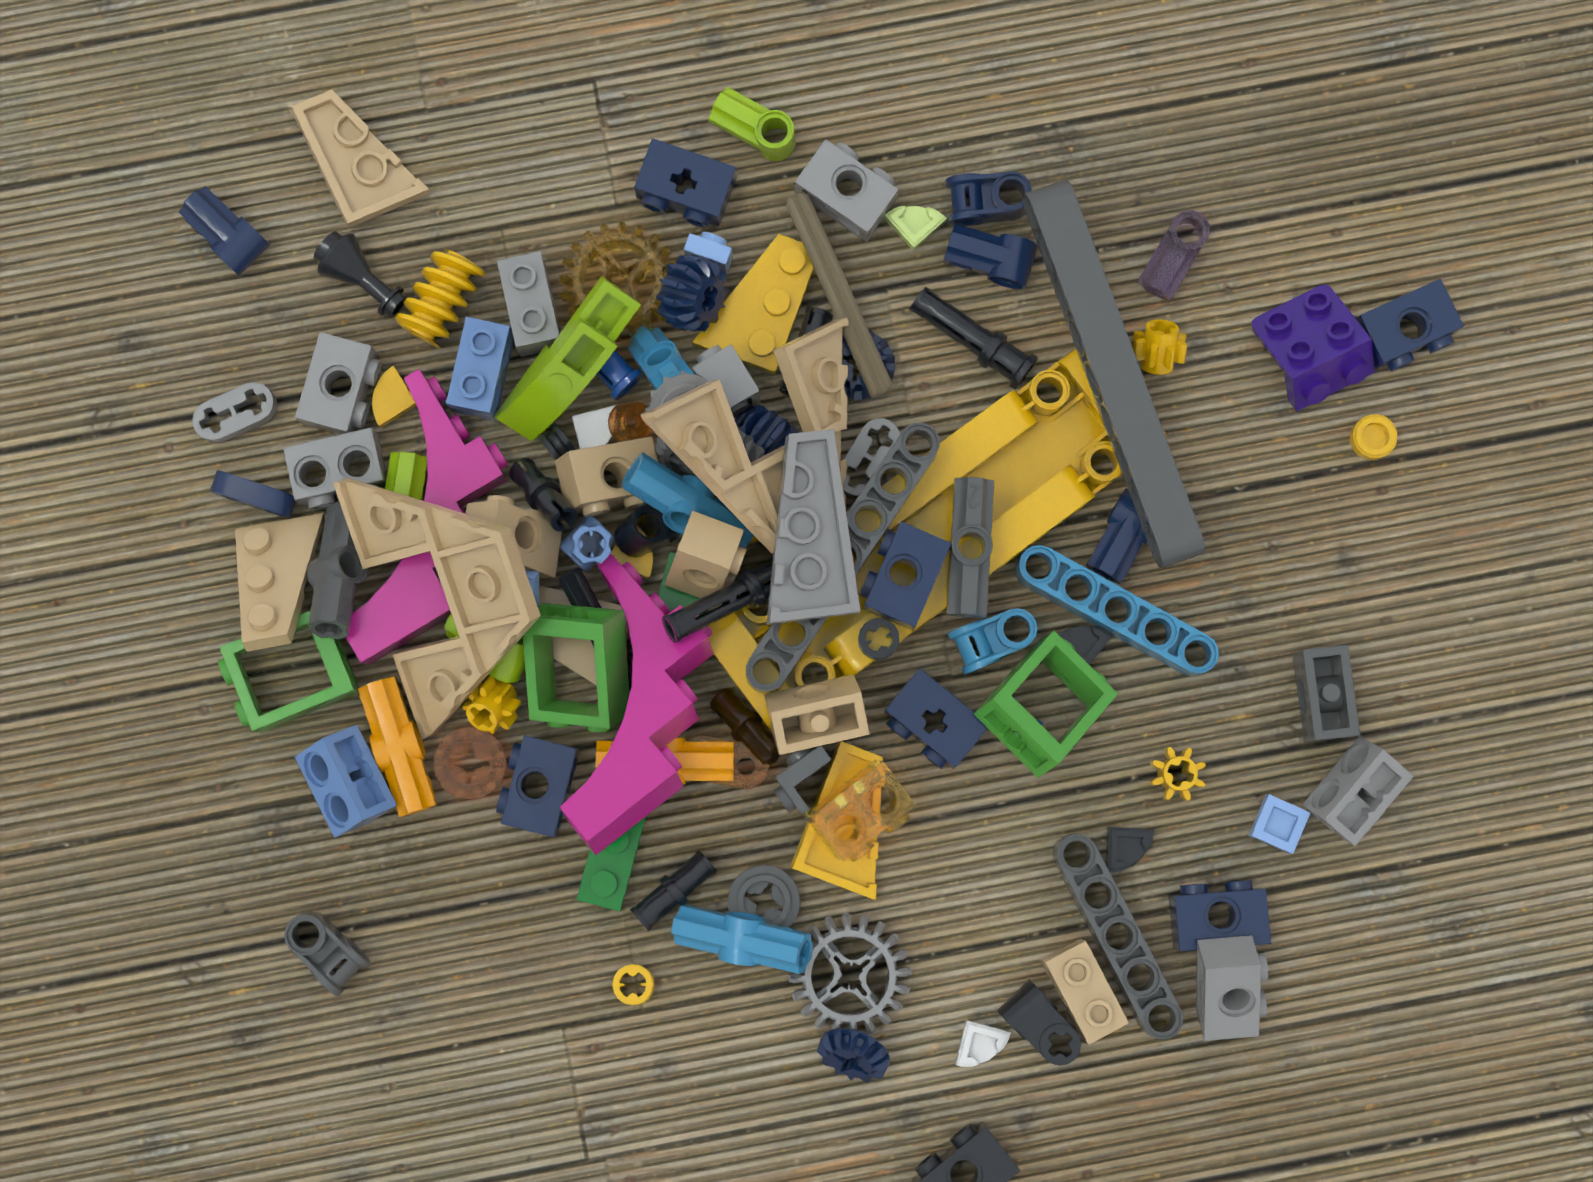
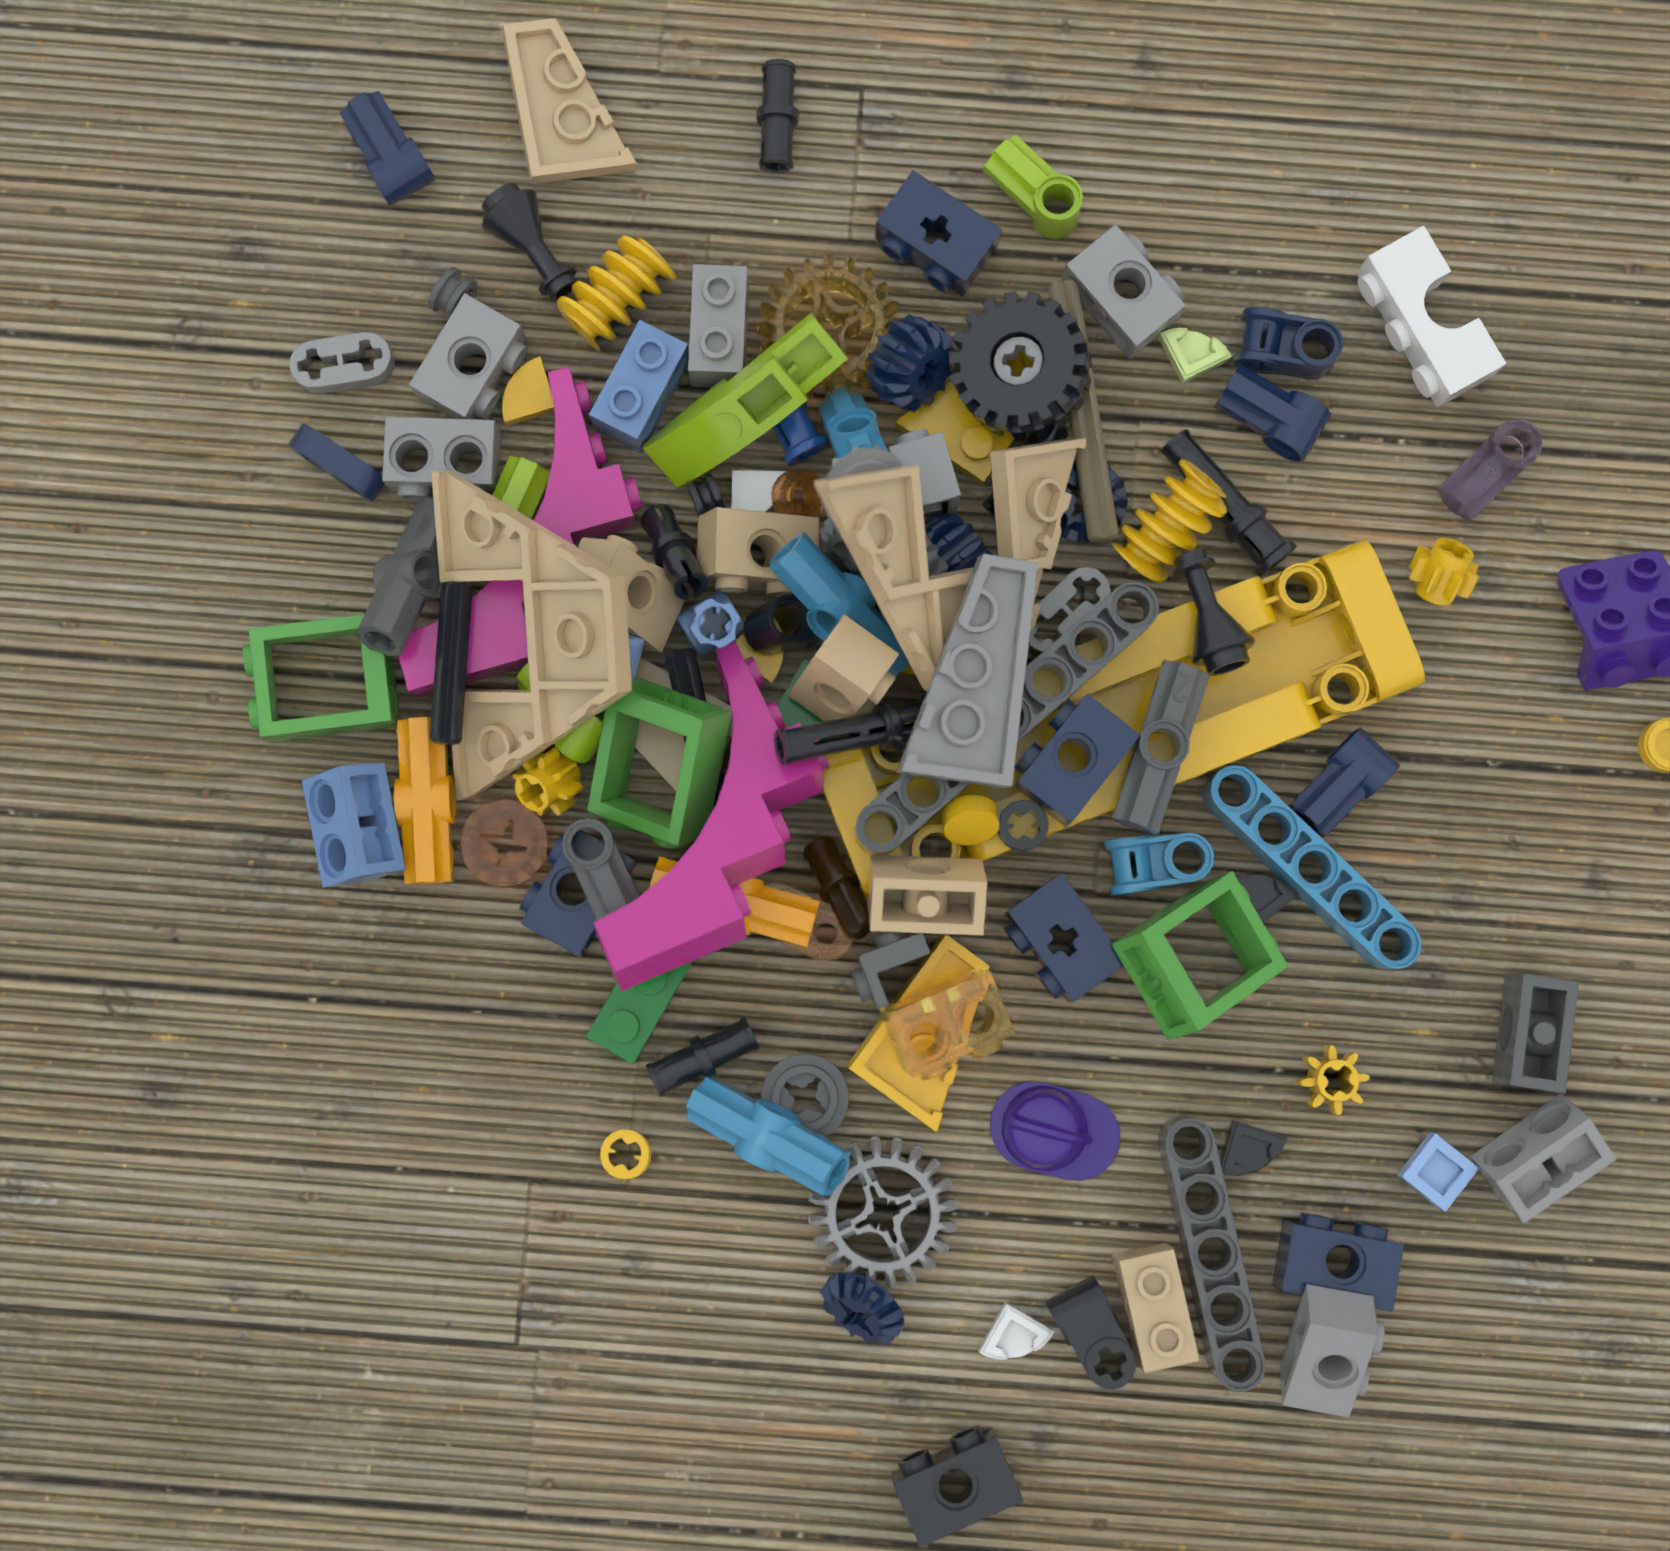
camera: 15 degrees right, 0 degrees up
(273, 577) = (333, 565): tan wing -> none
(307, 332) = (450, 290): none -> dark grey bush
(327, 952) = (278, 1019): dark grey piece -> none
(389, 631) = (451, 663): none -> black axle
(531, 121) = (777, 116): none -> black pin
(557, 770) = (603, 879): none -> dark grey piece
(710, 247) = (944, 313): light blue plate -> none
(802, 289) = (1041, 392): none -> black bush
(835, 645) = (970, 820): none -> yellow tile
(934, 366) = (1172, 522): none -> yellow piece
(969, 873) = (1055, 1131): none -> dark purple piece
(994, 449) = (1218, 638): none -> black piece
(1113, 374) = (1384, 588): dark grey beam -> none
(1116, 176) = (1442, 358): none -> white arch

